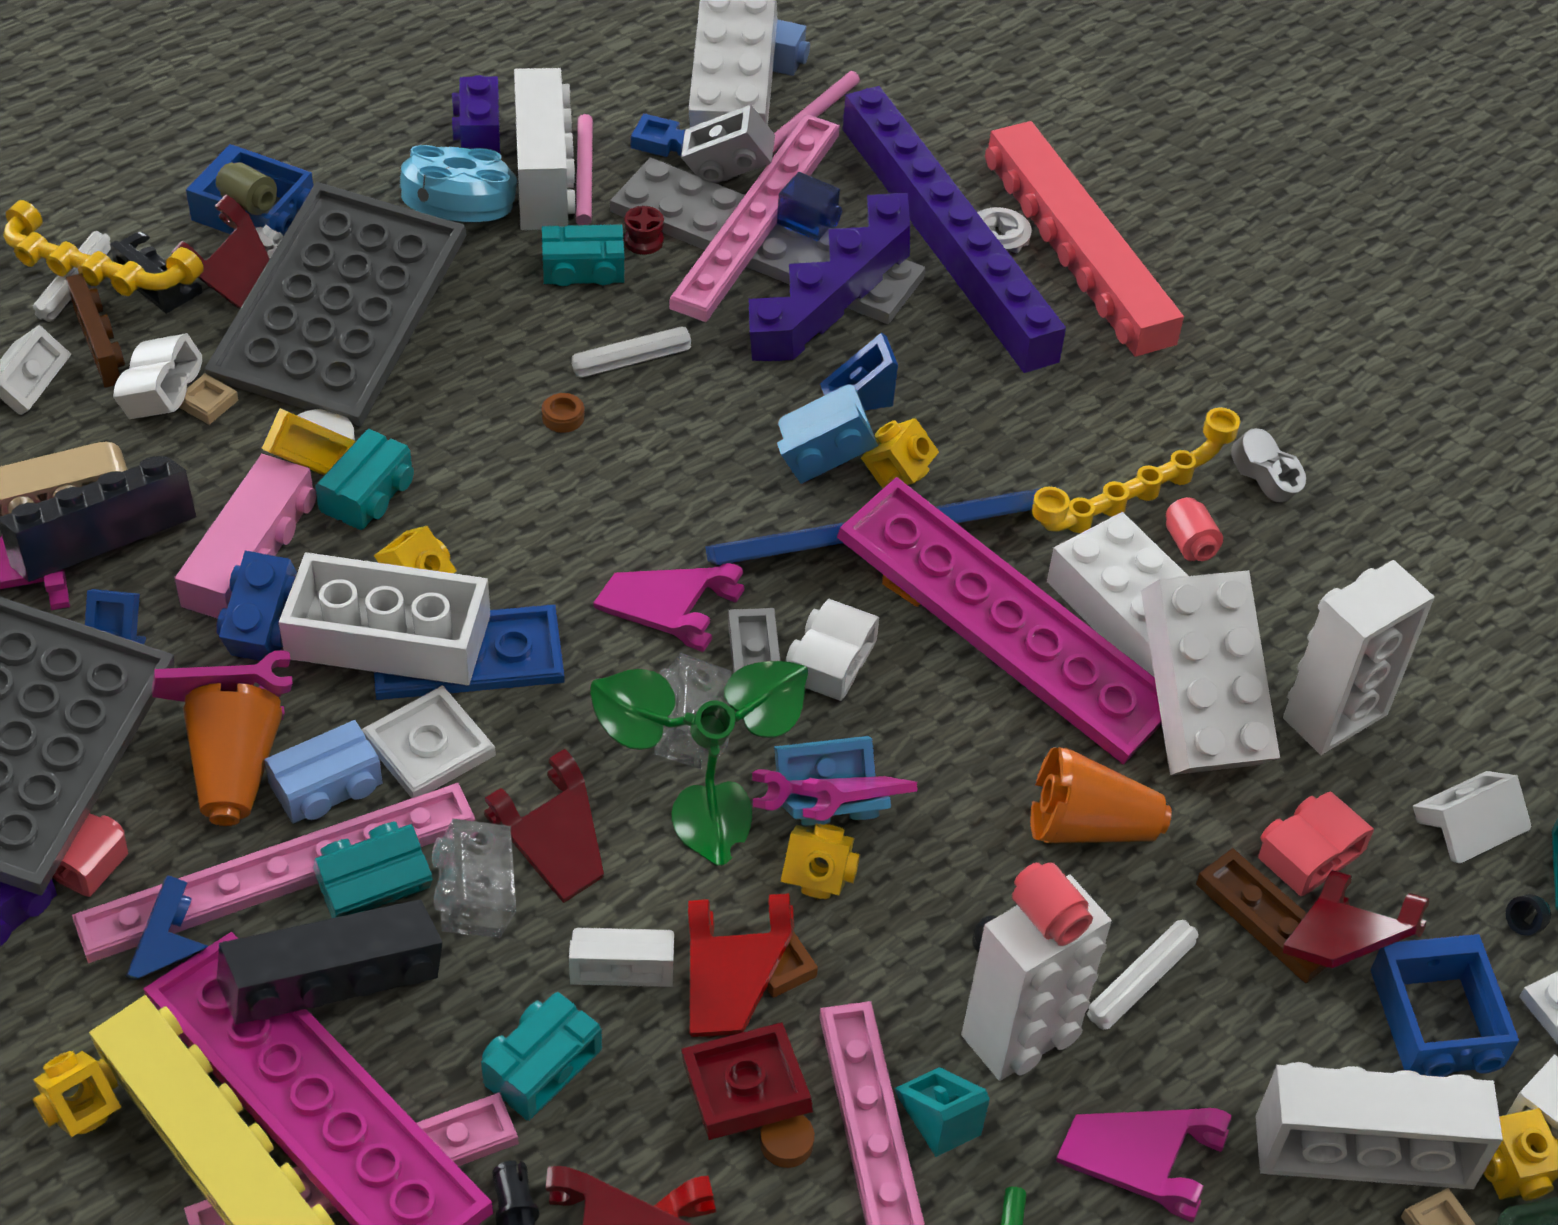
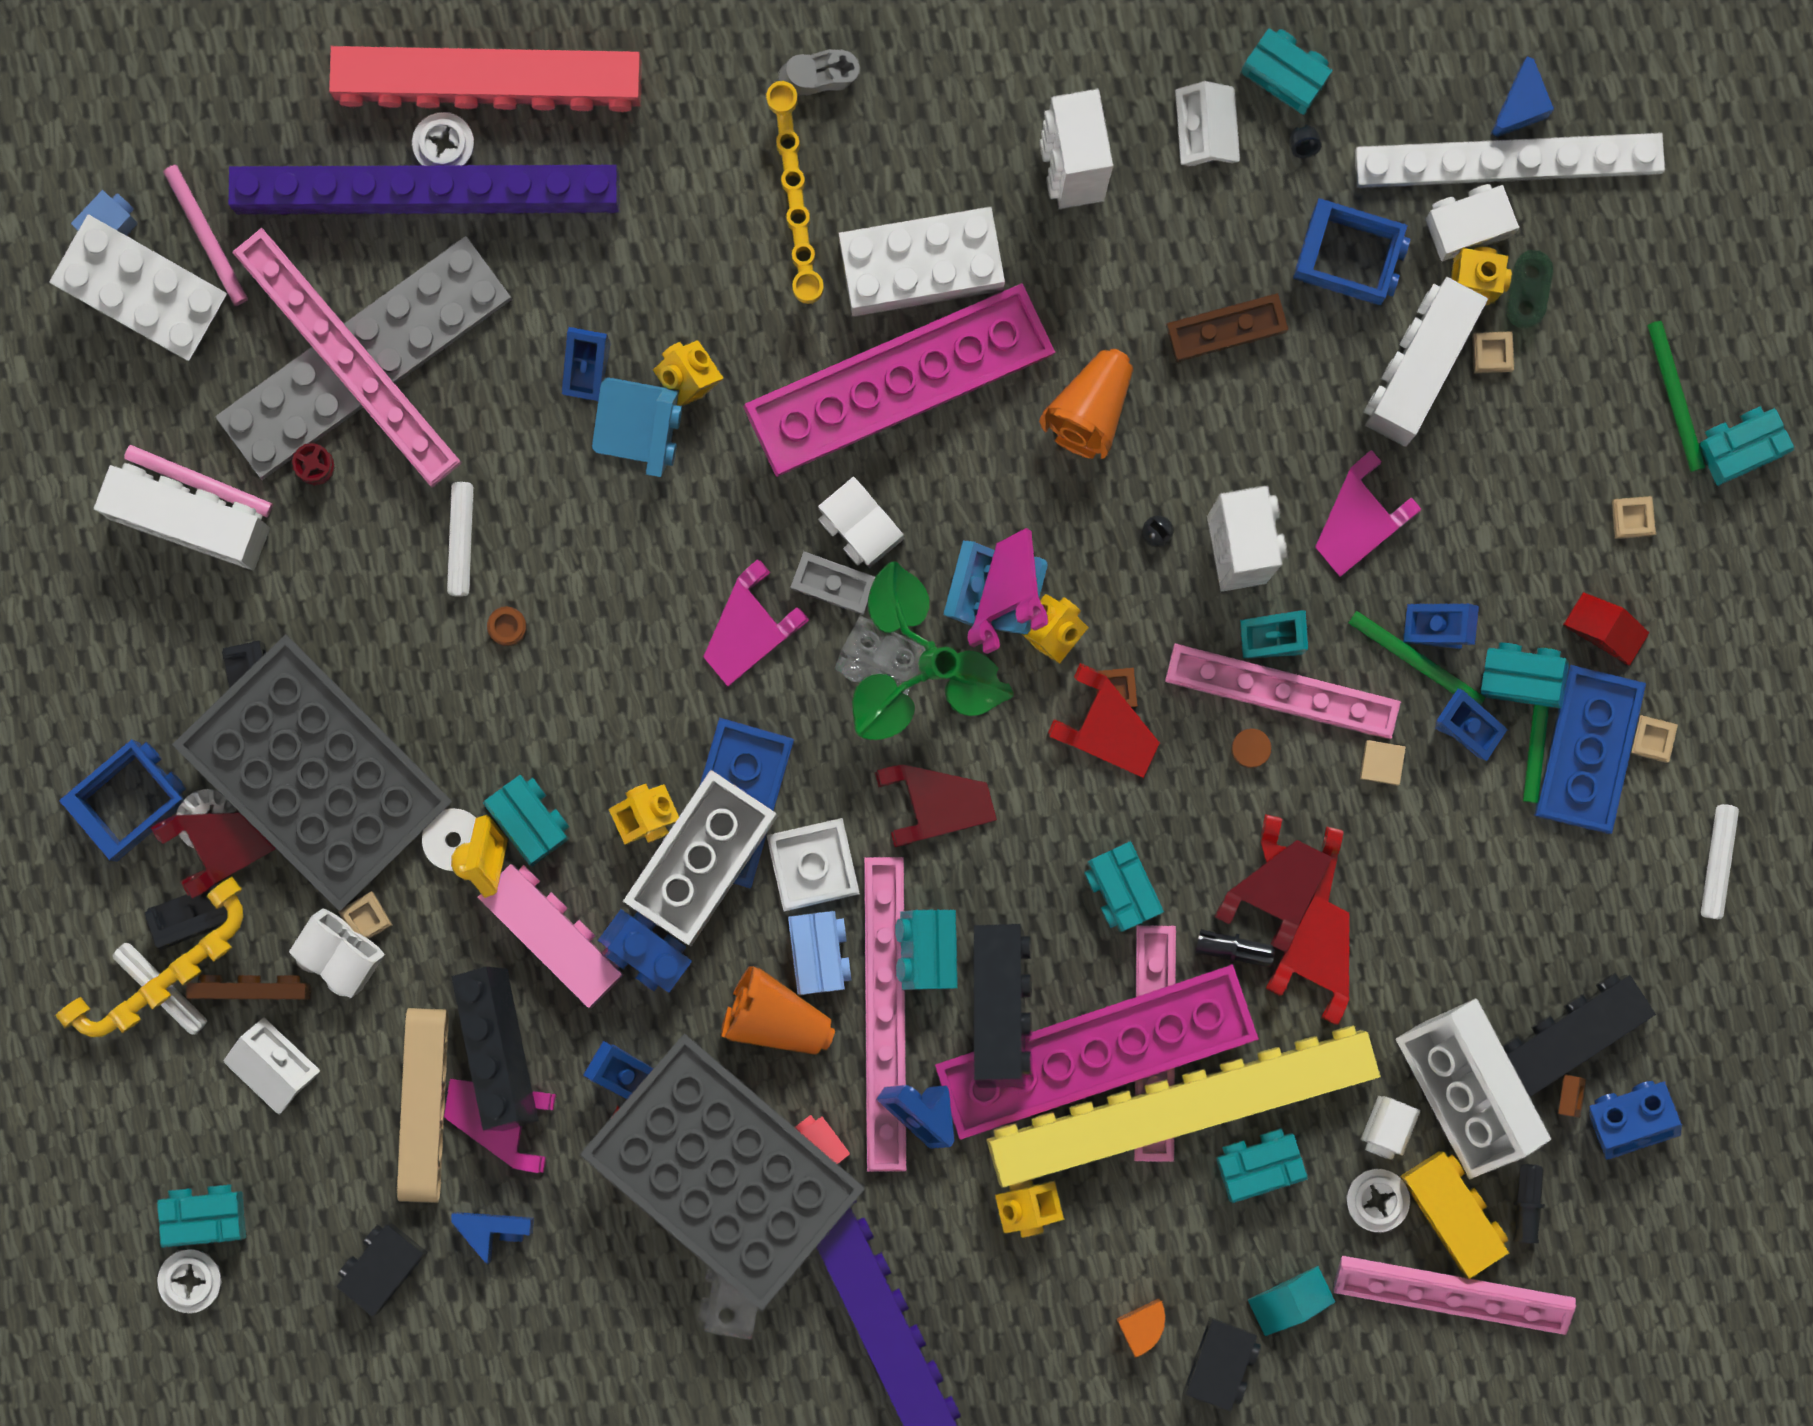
camera: 65 degrees left, 35 degrees up
(177, 682) = (730, 999): dark pink flag -> none
(247, 187) = (147, 807): olive brick -> none
(457, 183) = (197, 611): medium azure piece -> none
(475, 878) = (965, 879): clear brick -> none
(478, 112) = (99, 553): dark purple brick -> none
(583, 254) = (328, 533): teal brick -> none
(621, 957) = (1061, 797): white panel -> none
(657, 136) = (187, 395): blue plate -> none
(728, 145) = (254, 346): light grey brick -> none
(746, 1080) = (1205, 758): dark red plate -> none
(809, 206) = (368, 310): clear blue brick -> none
(825, 289) = (465, 312): dark purple brick -> none
(827, 534) = (745, 450): blue tile -> none
(1052, 903) = (1249, 524): coral brick -> none
(1142, 974) = (1231, 439): white axle -> none
(1193, 529) = (861, 174): coral brick -> none
(1209, 672) = (1031, 261): white brick -> none
(1314, 842) = (1185, 259): coral brick -> none
(1340, 933) = (1274, 288): dark red flag -> none

